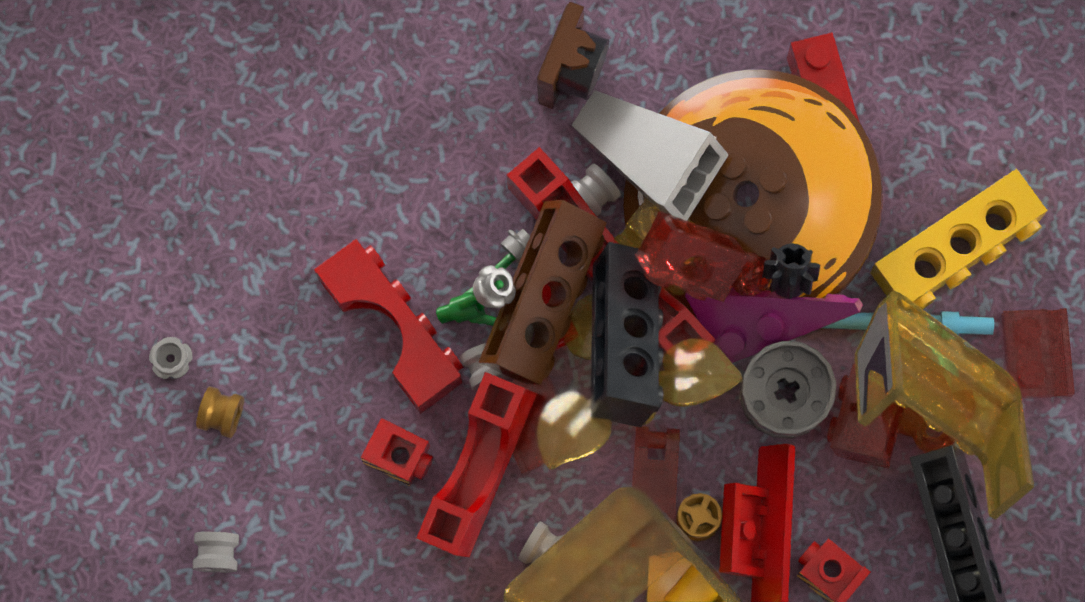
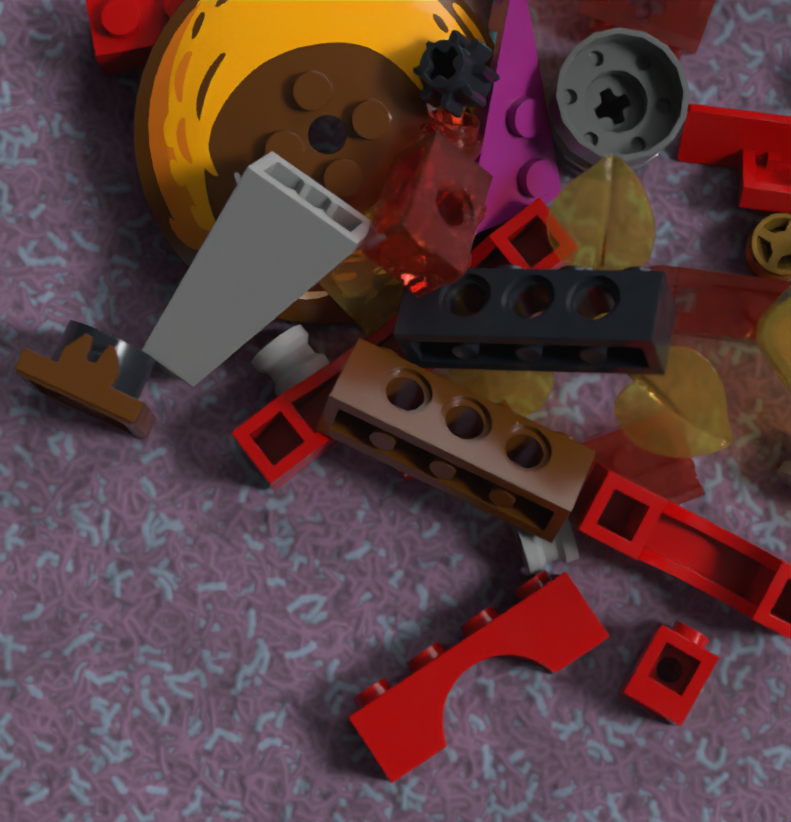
camera: 90 degrees left, 5 degrees up
(490, 288) = (448, 511): plant -> none

